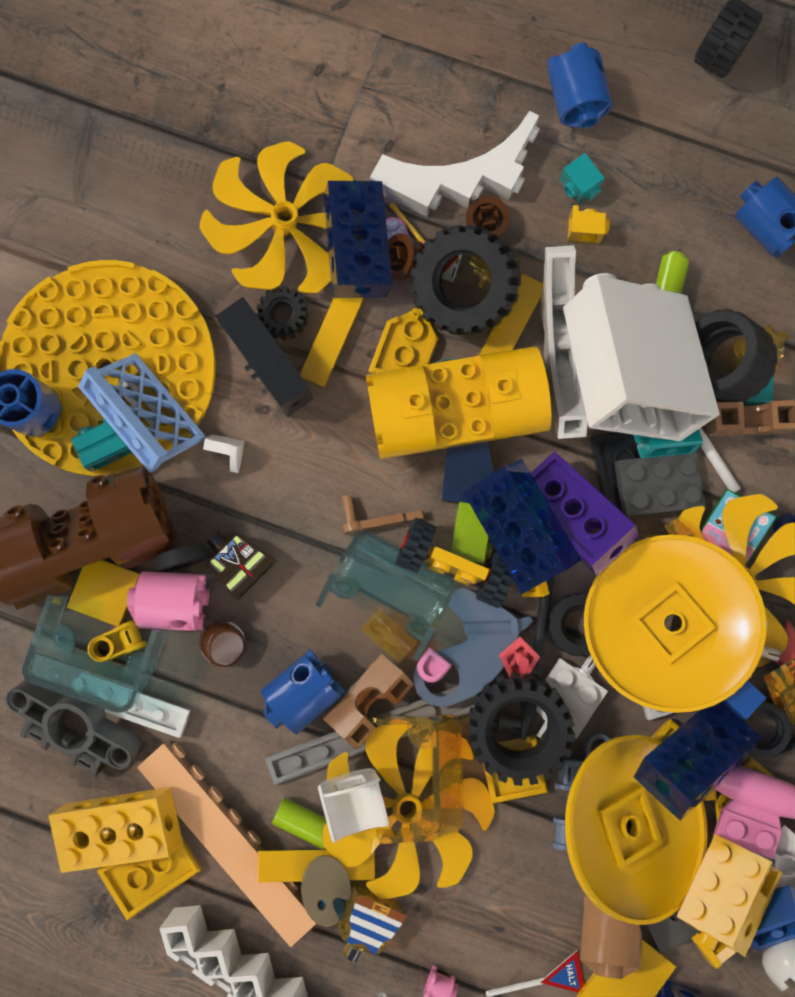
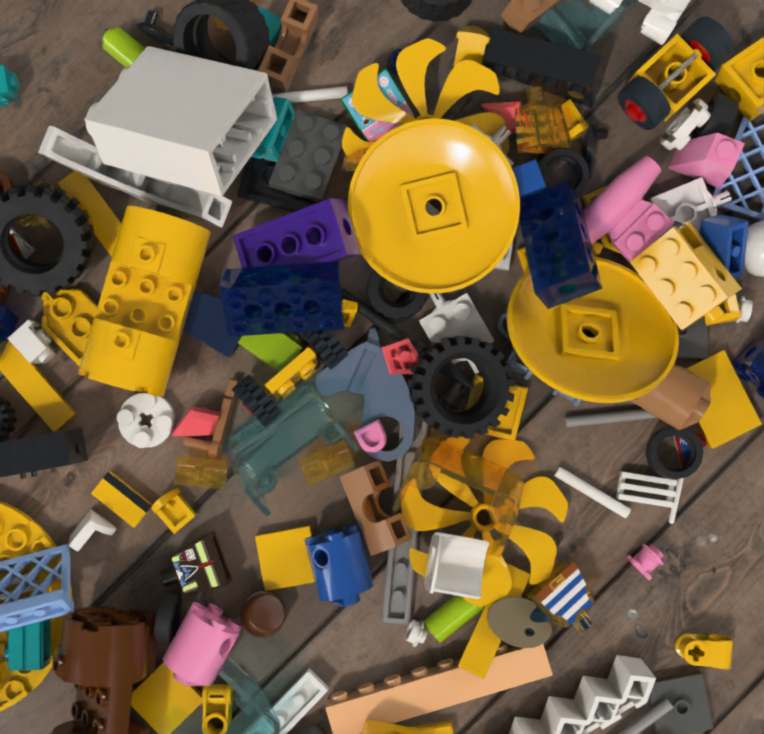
camera: 65 degrees left, 5 degrees up
(267, 465) = (122, 499): none -> yellow tile
(269, 795) = (416, 632): none -> white plate
(278, 516) = (173, 510): none -> yellow tile
(282, 639) = (284, 558): none -> yellow tile
(325, 525) = (201, 472): none -> clear yellow hips
(342, 438) = (130, 417): none -> white plate
(368, 499) = (197, 422): none -> coral piece
(370, 320) = (33, 343): none -> white brick
(479, 902) = (592, 492): none -> white bar
(513, 978) = (670, 493): none -> white tile
(557, 883) = (607, 417): none -> light grey bar
(576, 975) = (695, 456): none -> black tyre
(587, 225) = (41, 102): yellow brick -> none
(700, 293) = (149, 28): none -> black bar
(727, 969) = (745, 308): none -> white plate

